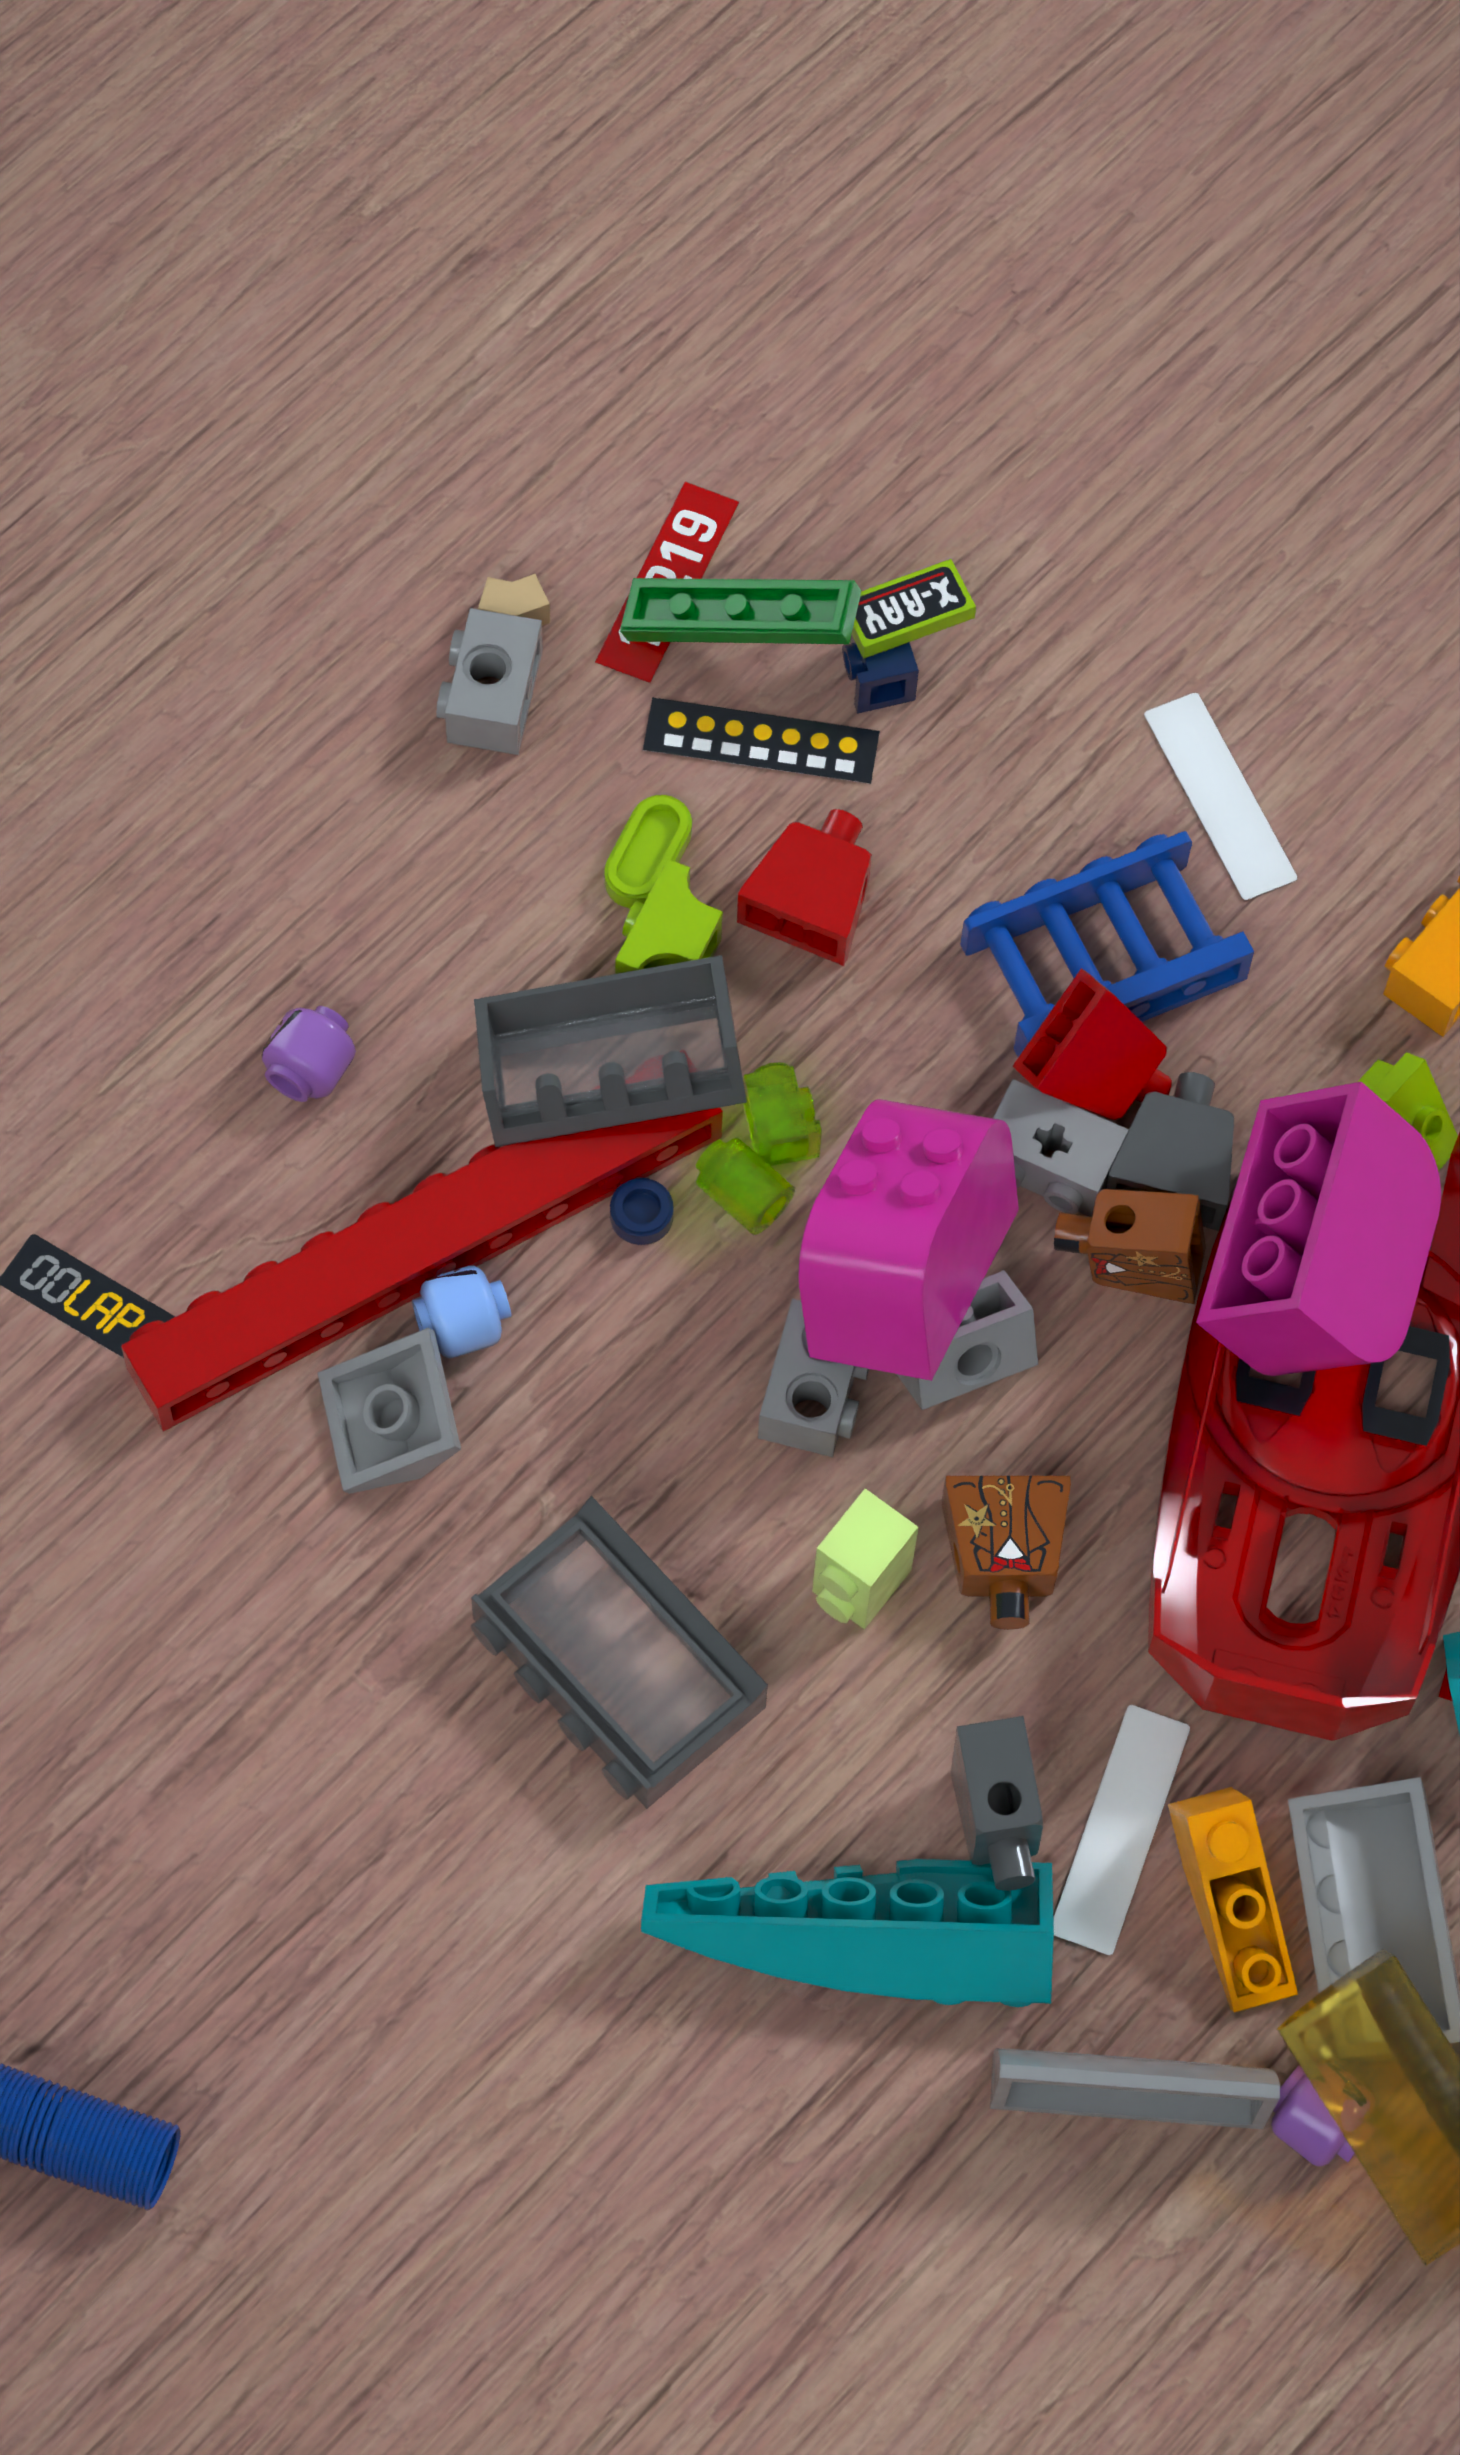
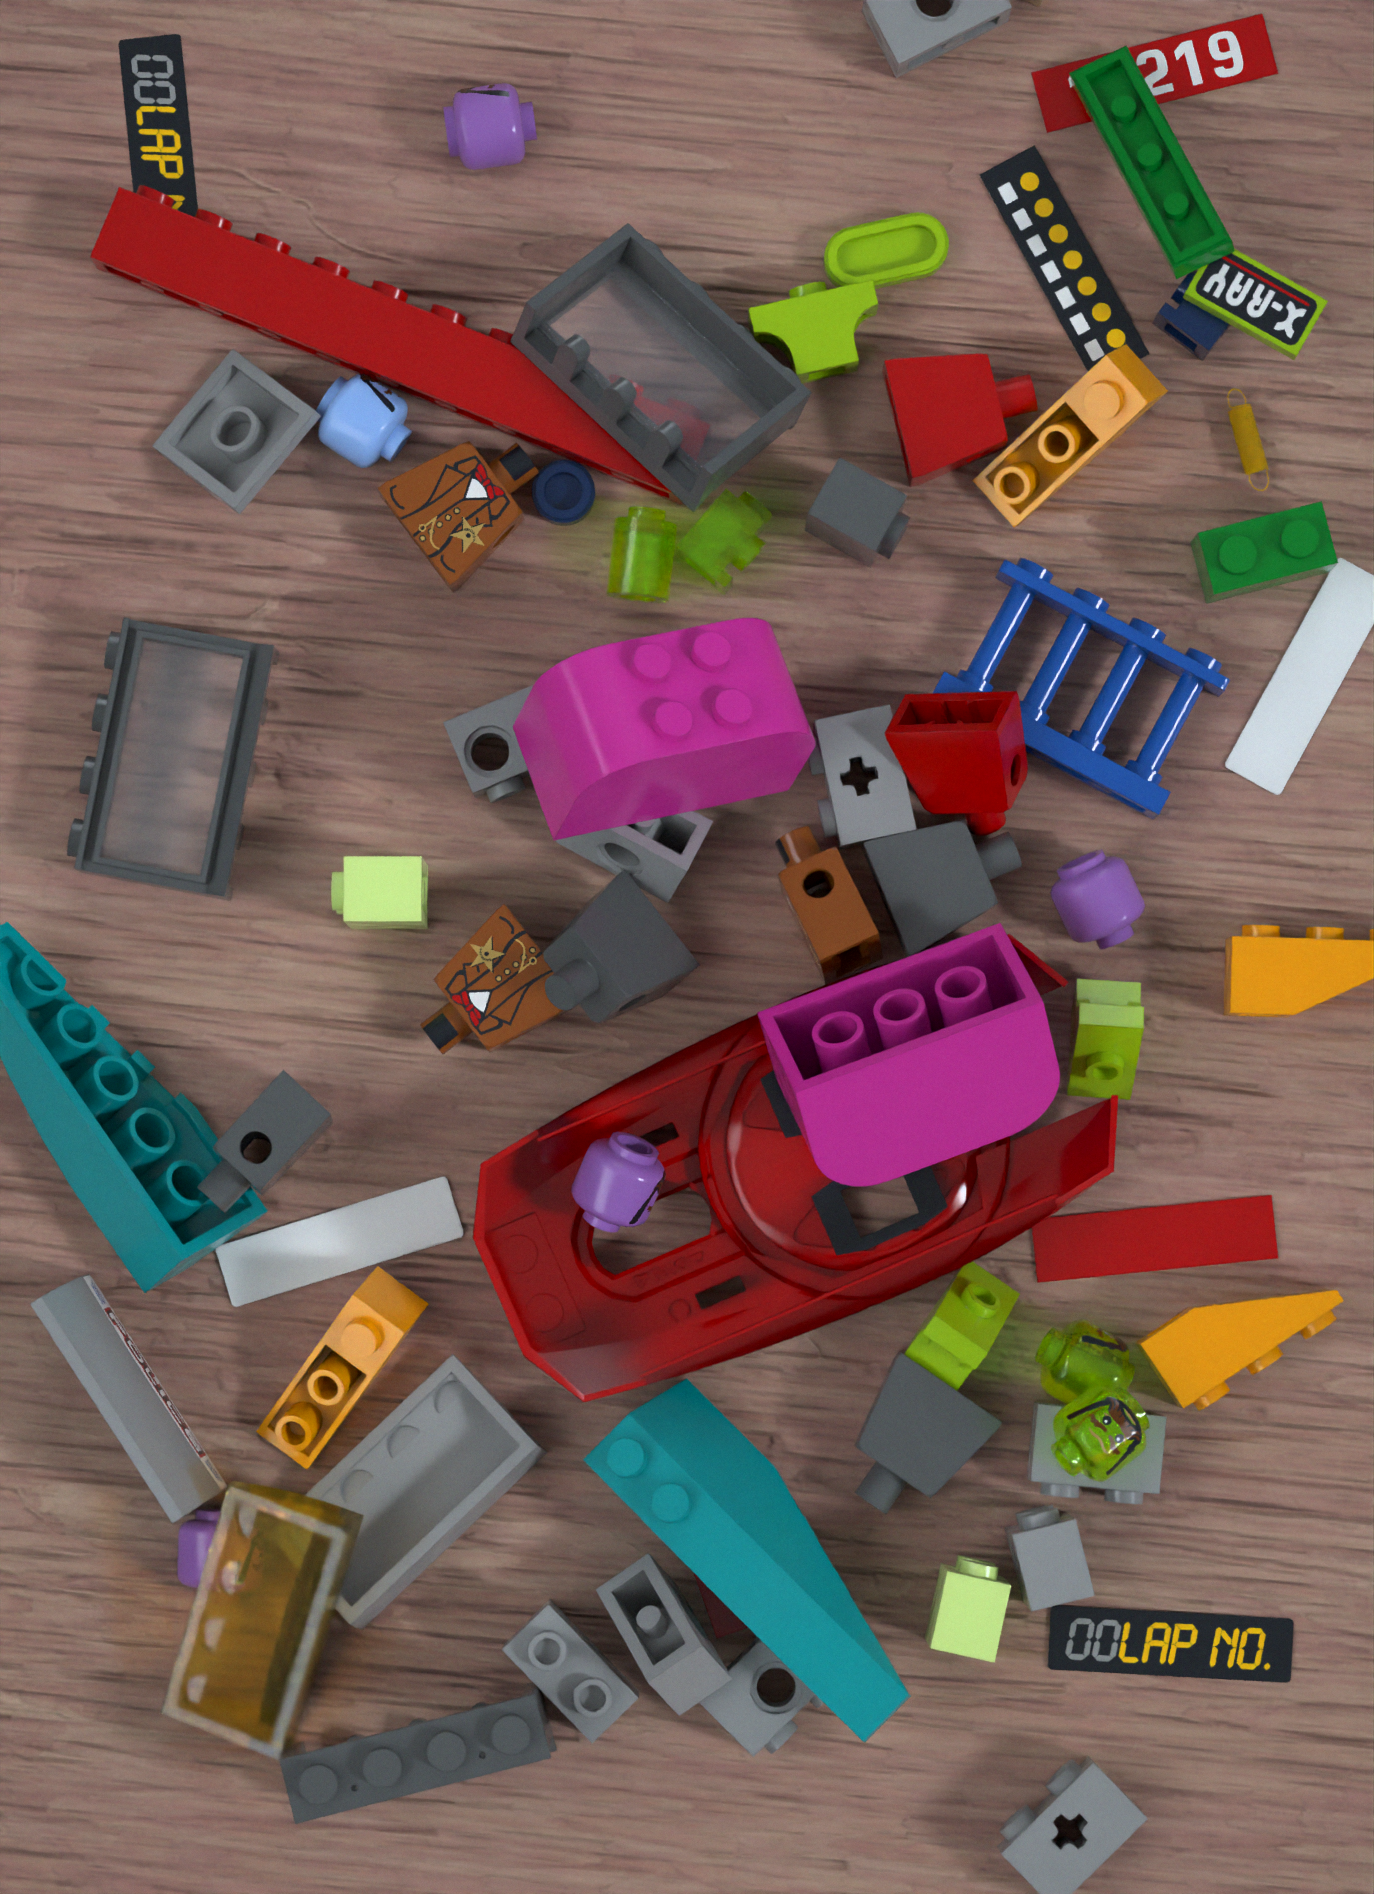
camera: 55 degrees right, 20 degrees up
(591, 1290) = (460, 506): none -> dark orange torso
(842, 995) = (858, 514): none -> dark grey brick
(900, 820) = (1070, 434): none -> light orange slope
(1002, 707) = (1247, 439): none -> yellow piece
(1050, 1422) = (615, 954): none -> dark grey torso
(1103, 748) = (1264, 552): none -> green brick
(1246, 1550) = (618, 1182): none -> medium lavender head
(1284, 1049) = (1097, 899): none -> medium lavender head

